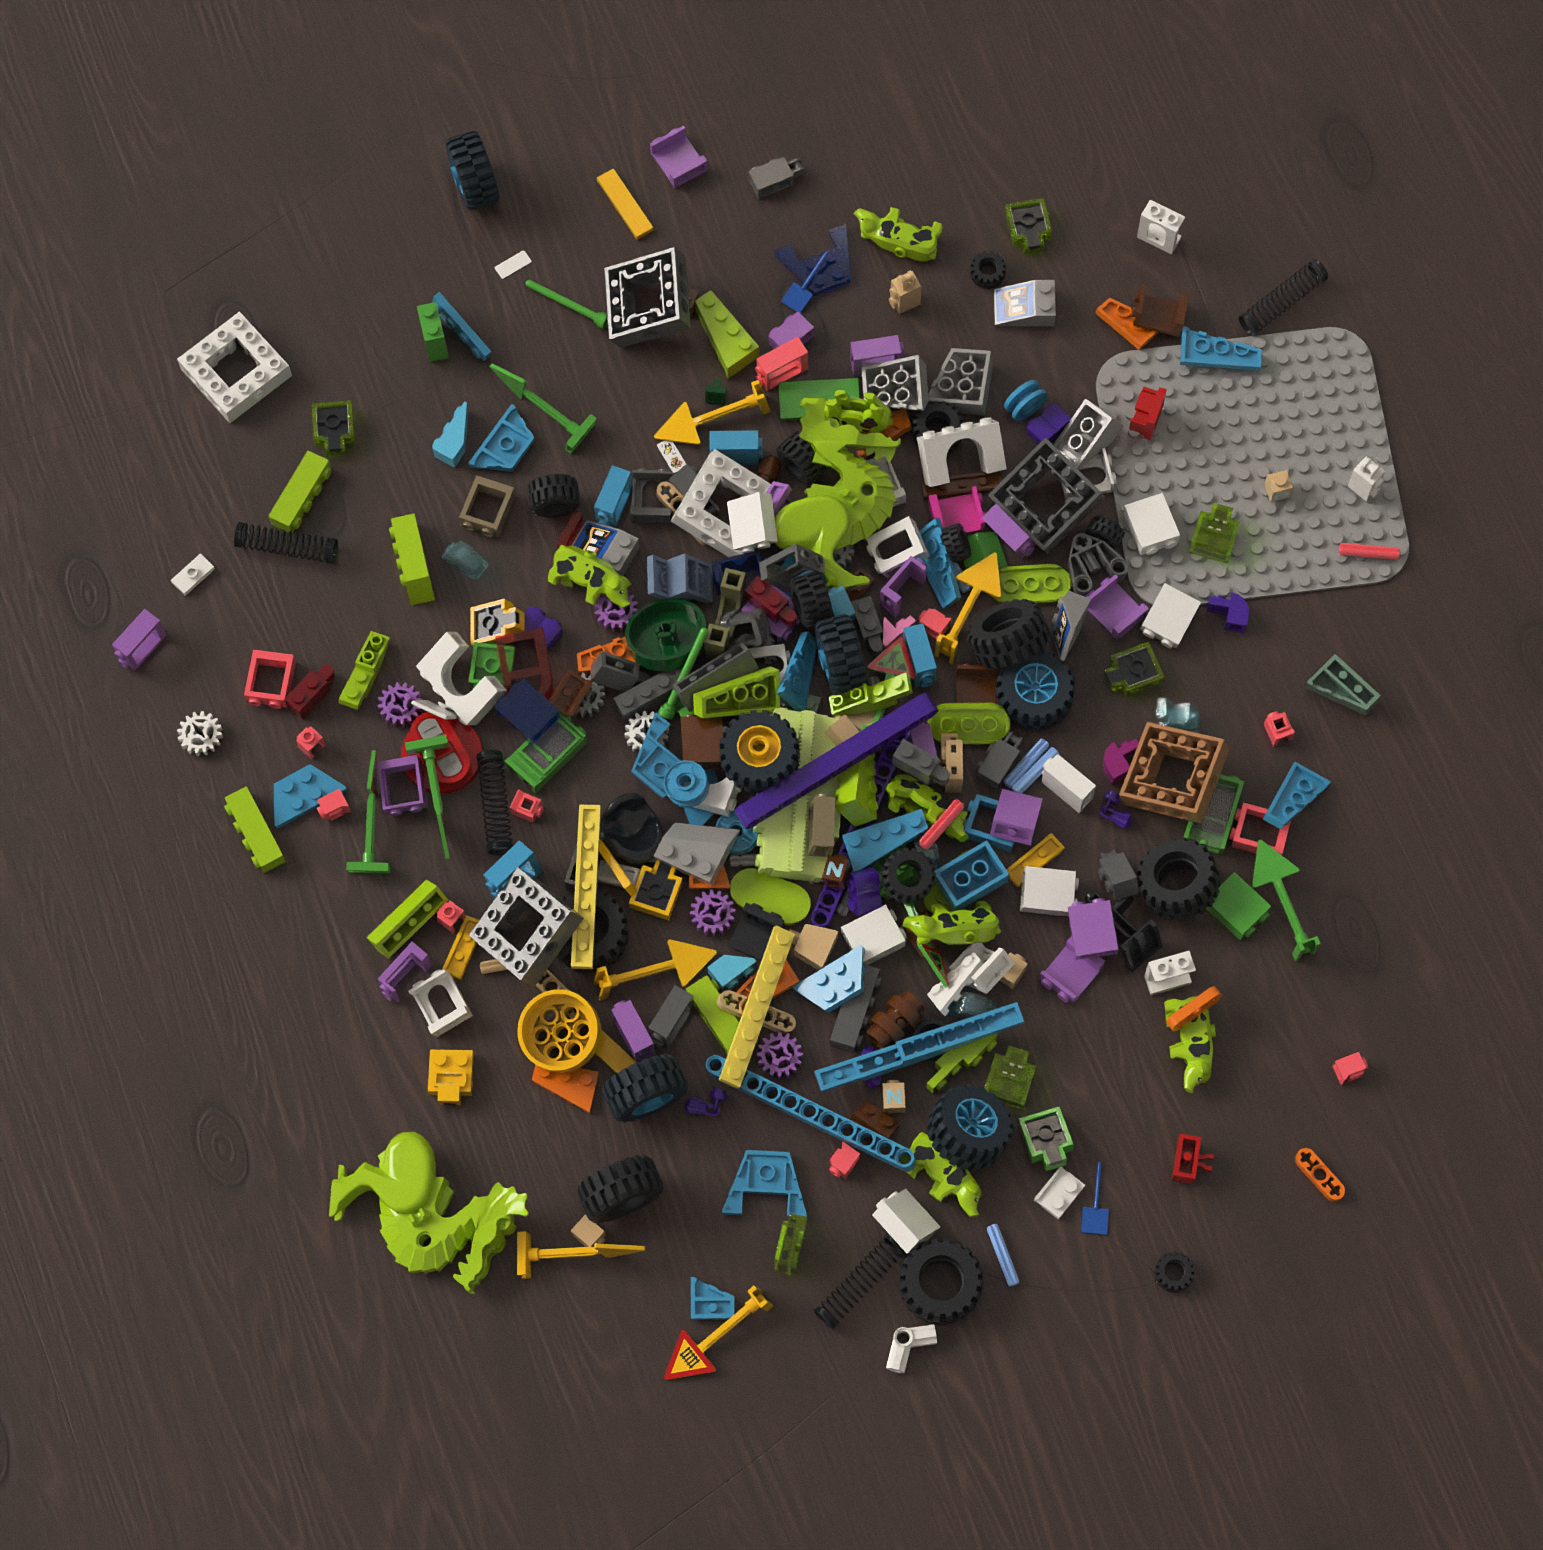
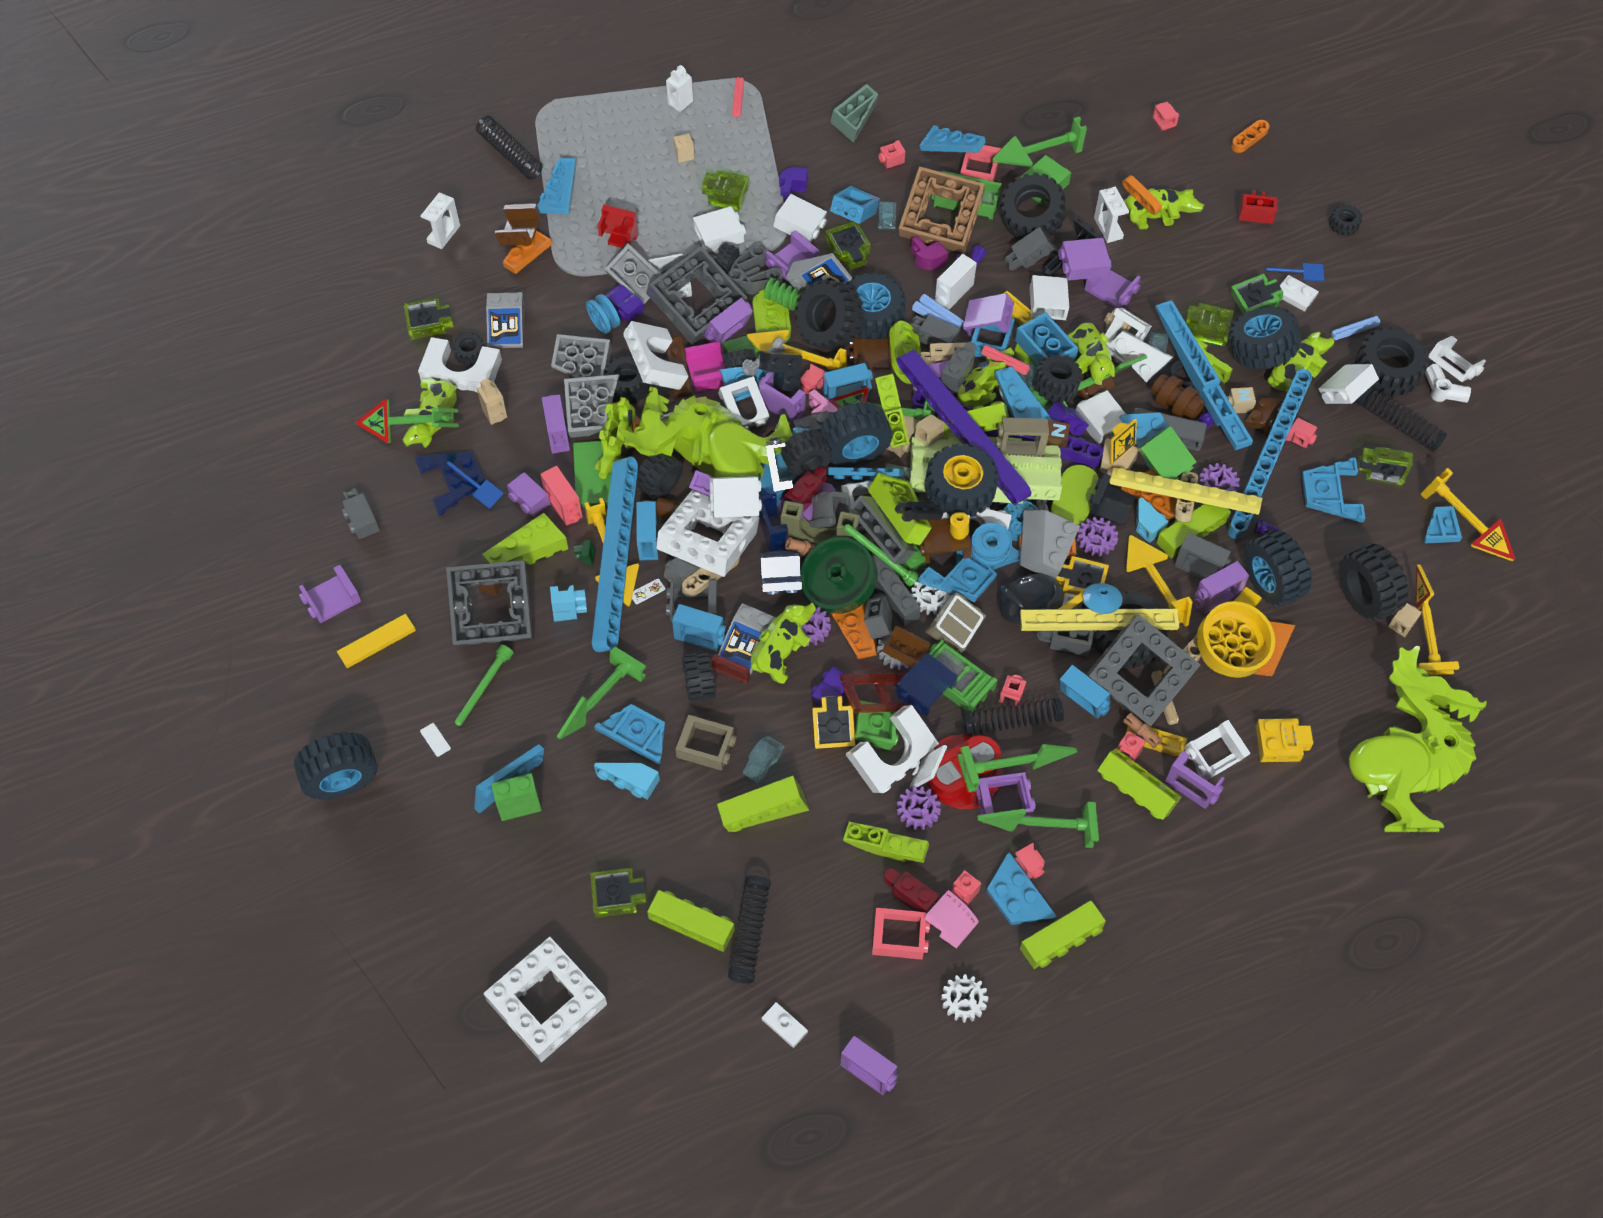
camera: 95 degrees left, 10 degrees down
(278, 726) = (952, 919): none -> bright pink slope
(465, 929) = (1142, 730): none -> nougat pin
(606, 752) = (956, 622): none -> dark tan brick
(608, 900) = (1102, 598): none -> dark azure dish
(651, 372) = (567, 603): none -> medium azure hips
(695, 419) = (615, 555): none -> dark azure beam
(703, 746) = (959, 525): none -> yellow brick
(709, 603) = (803, 547): none -> nougat pin
(718, 703) = (918, 511): none -> black hinge
(806, 992) = (1167, 454): none -> bright green brick
(818, 936) = (1123, 440): none -> piece
(871, 234) = (378, 420): none -> bright green piece
(936, 549) = (750, 367): none -> light grey piece
(941, 582) = (785, 368): none -> black brick
(960, 236) = (436, 358): none -> white arch
(965, 1360) = (1444, 348): none -> white panel
(1051, 590) = (781, 295): none -> bright green piece
(1203, 687) = (850, 200): none -> dark azure window

